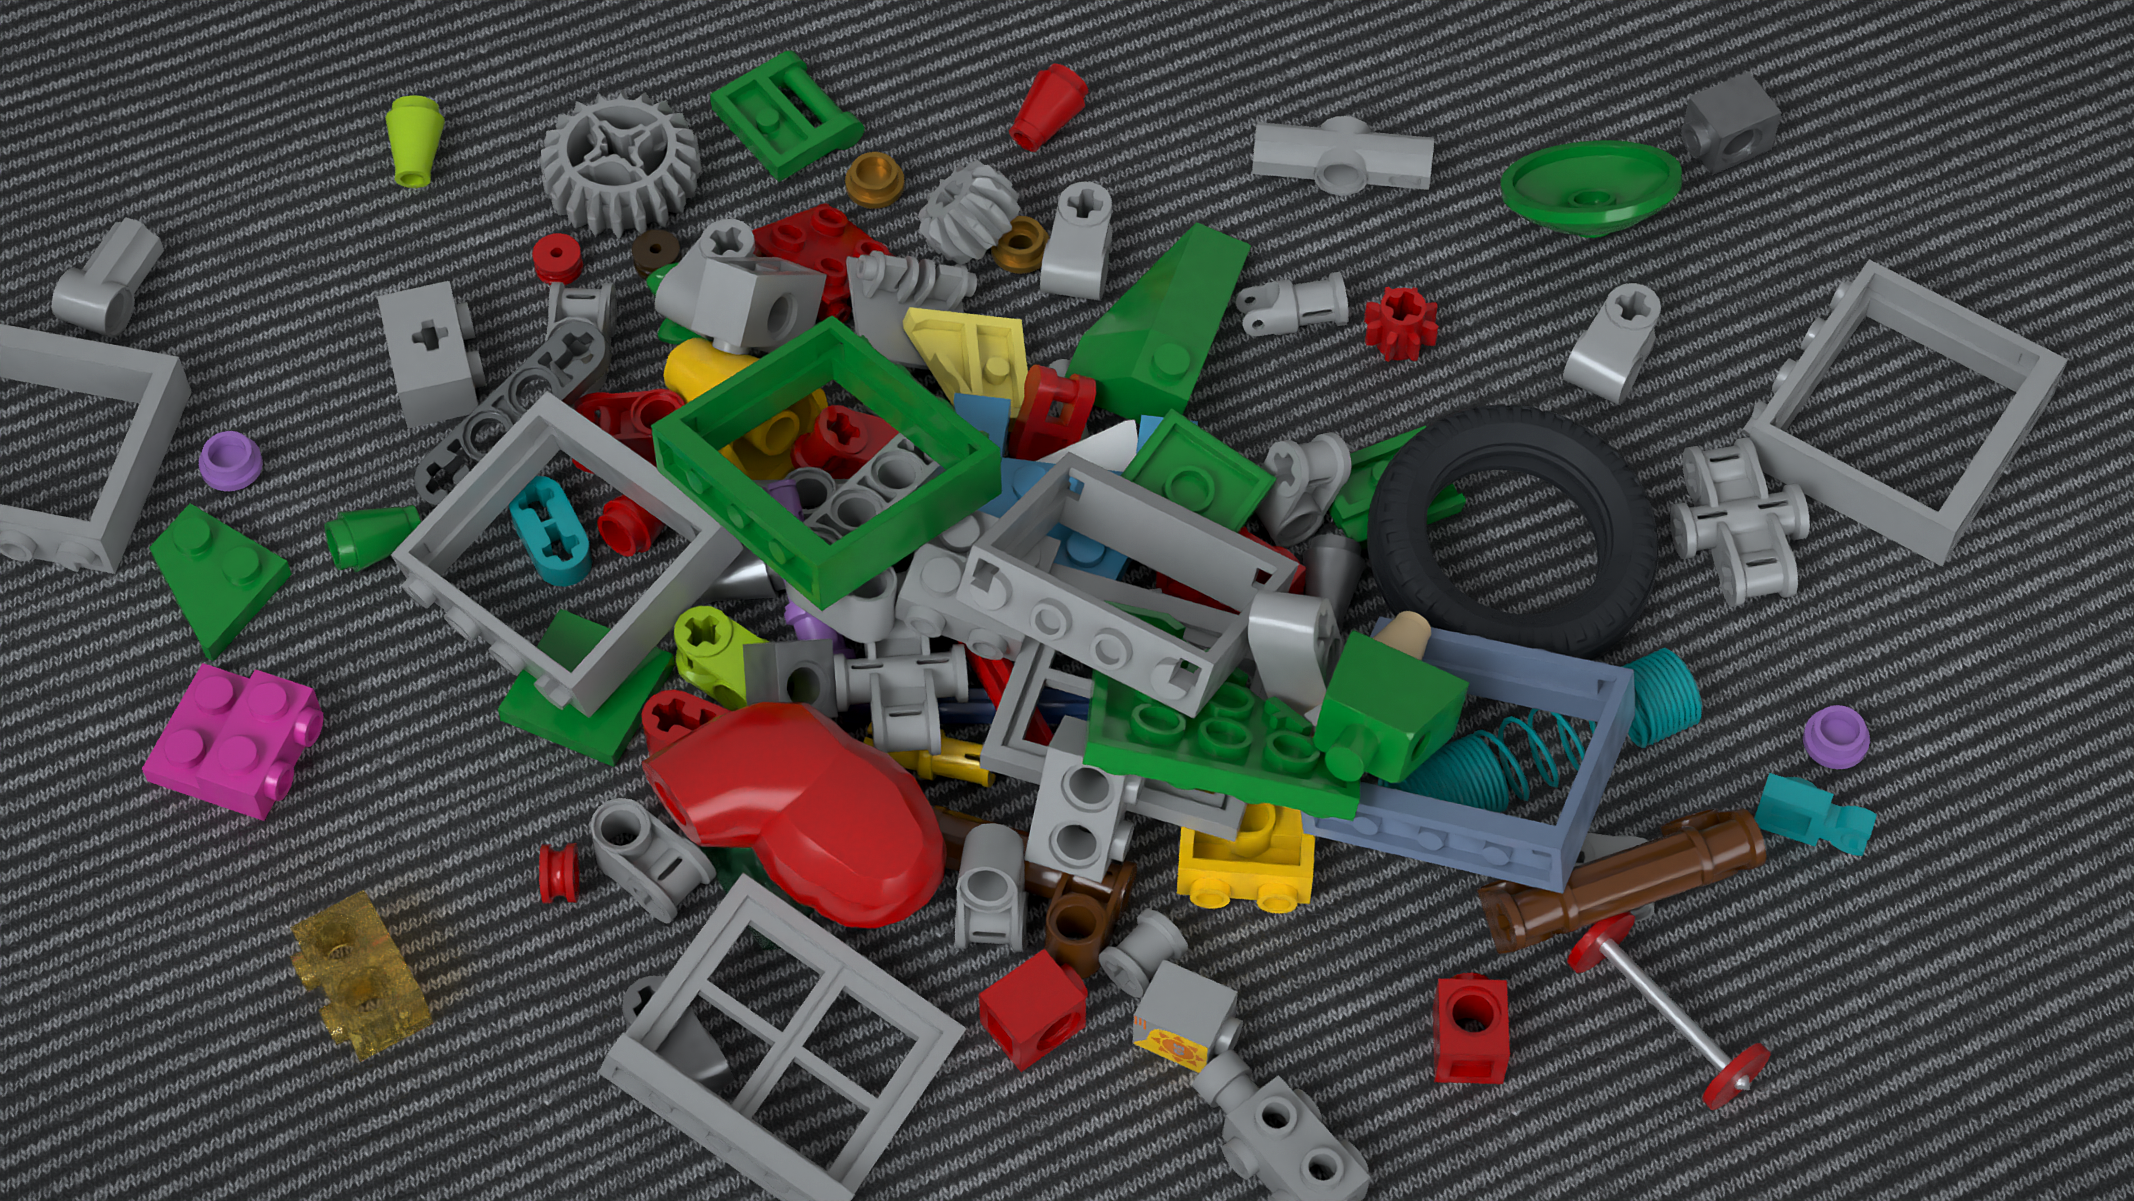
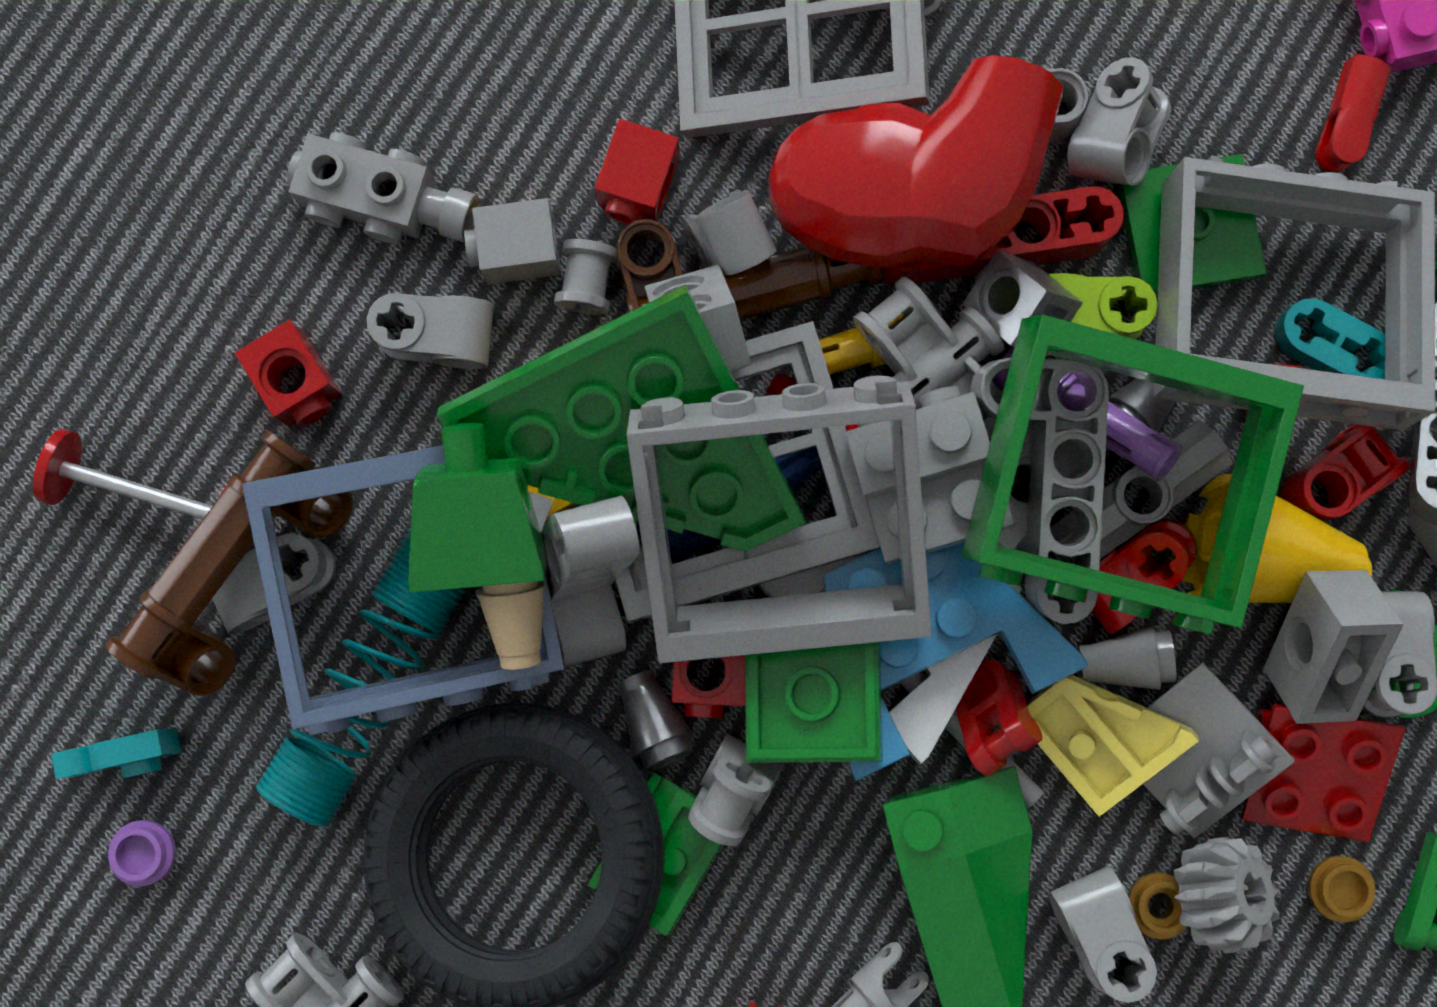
camera: 145 degrees right, 25 degrees up
(378, 685) = (1352, 113): none -> red bar
(559, 873) = (1082, 48): red bush -> none
(593, 771) = (1119, 125): none -> light grey piece
(1313, 989) = (444, 331): none -> light grey piece

